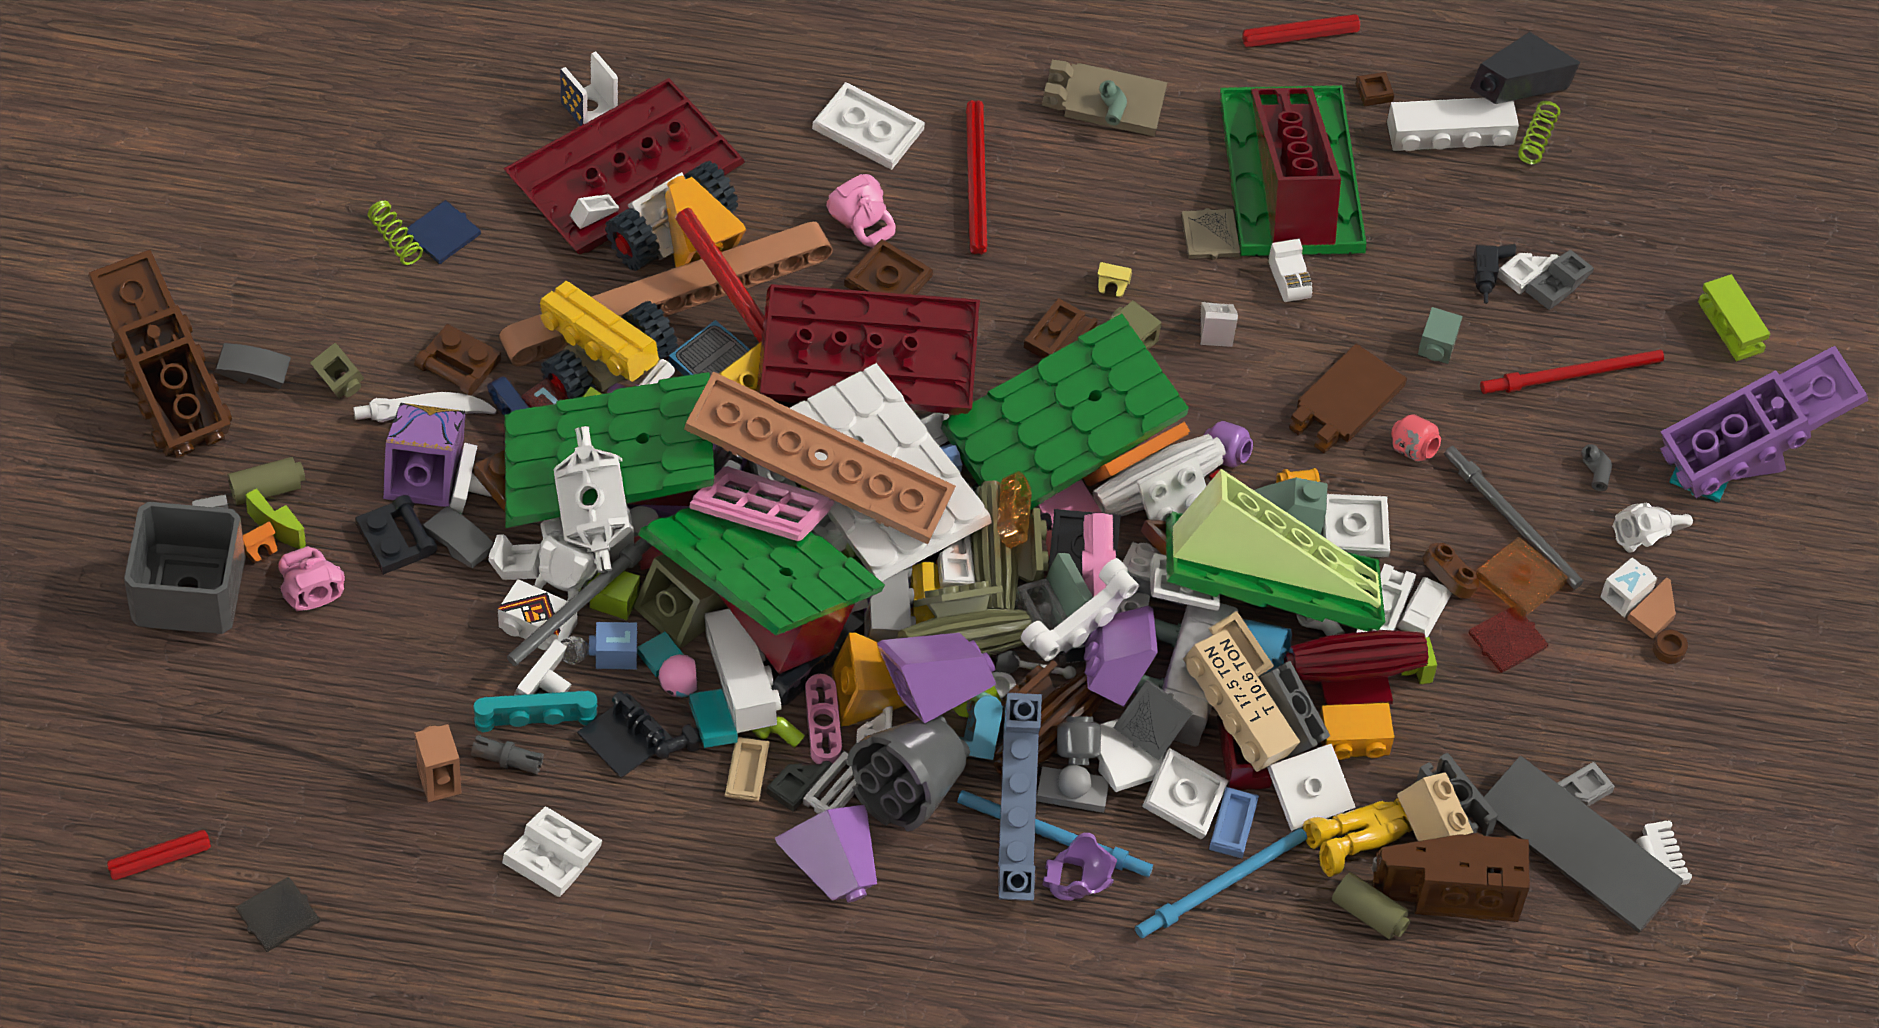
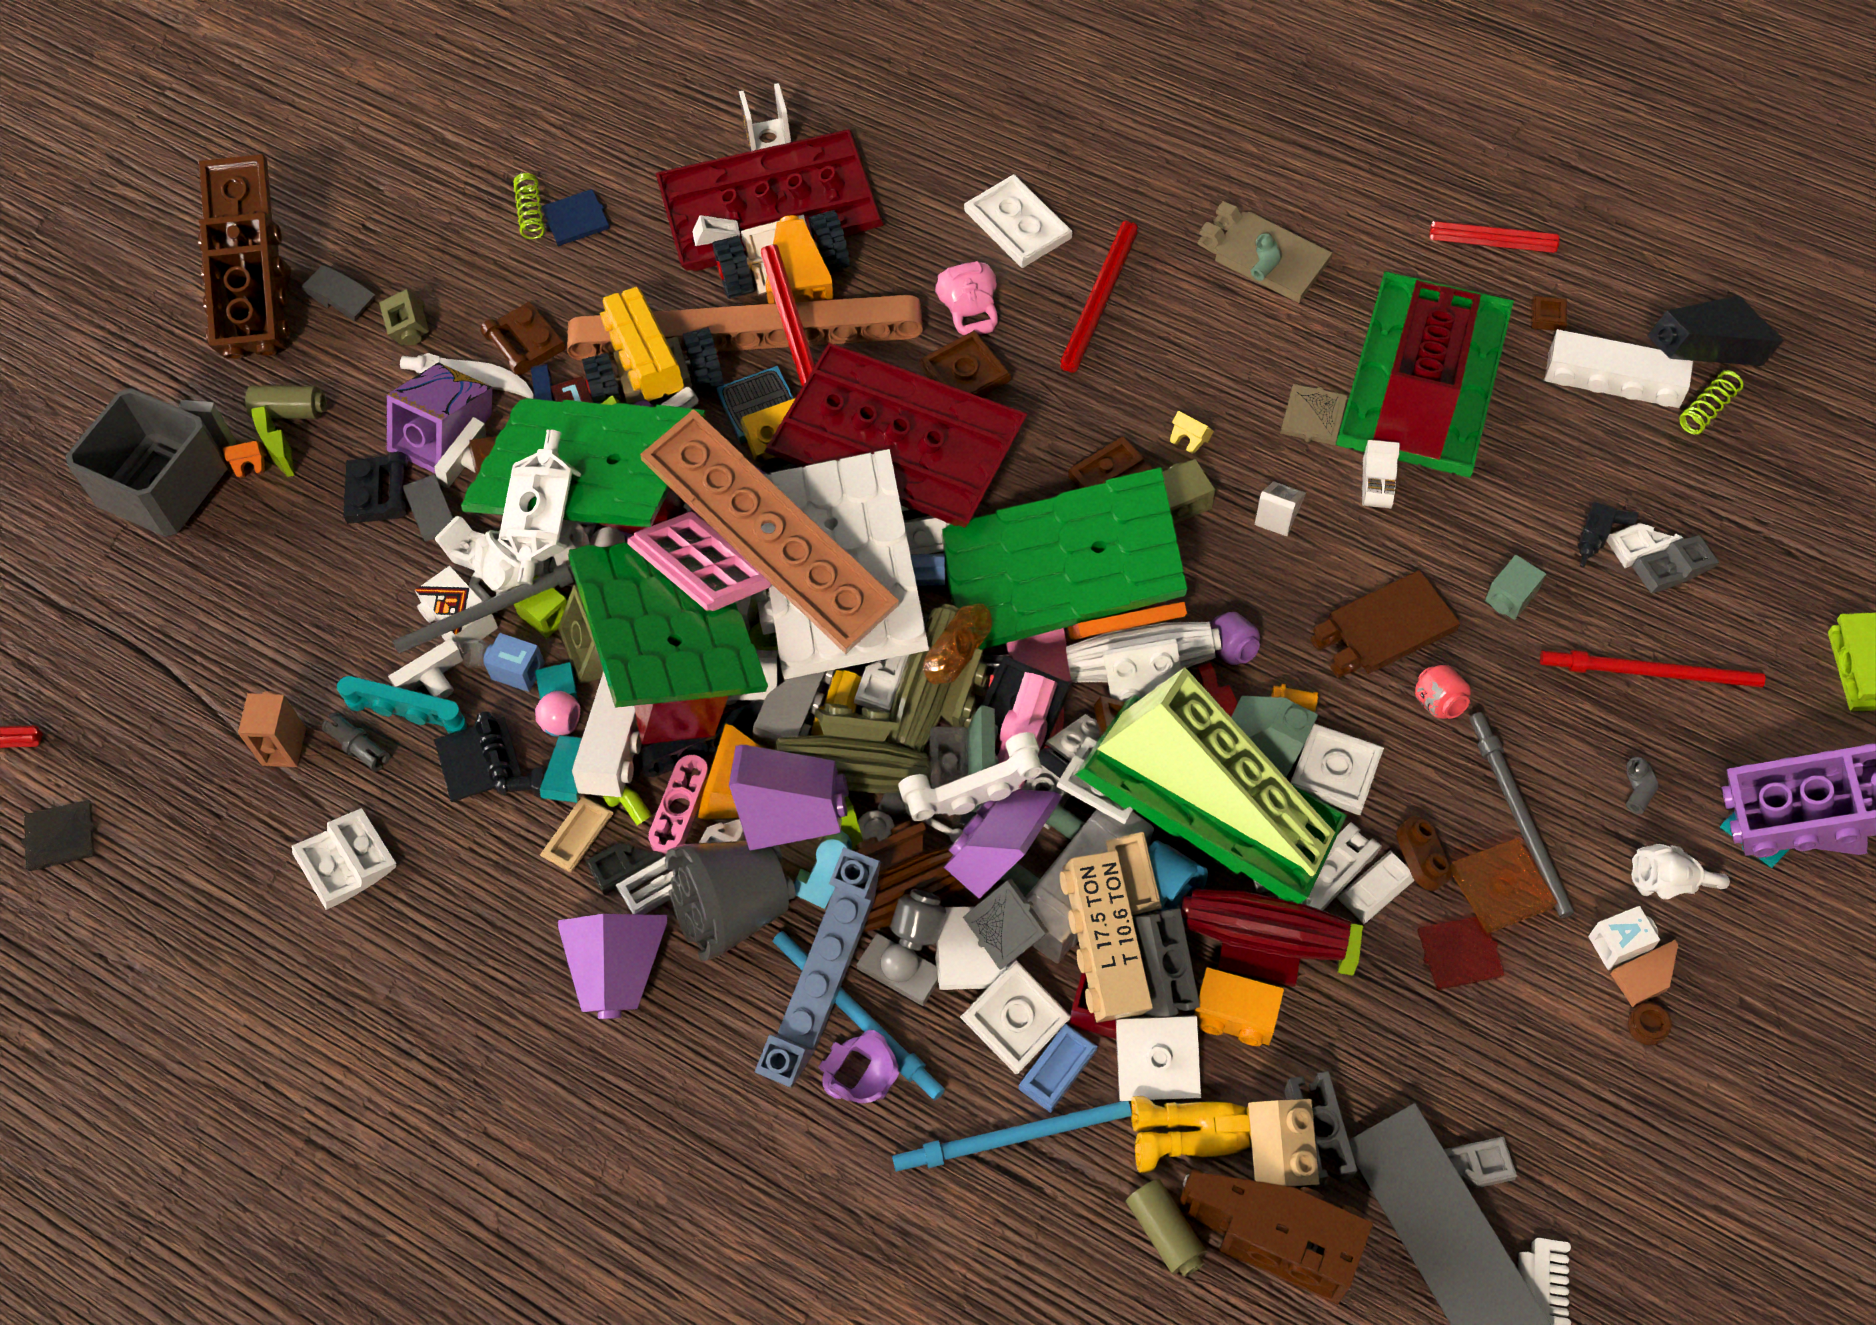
camera: 30 degrees right, 5 degrees up
(309, 579) = (270, 508): bright pink piece -> none

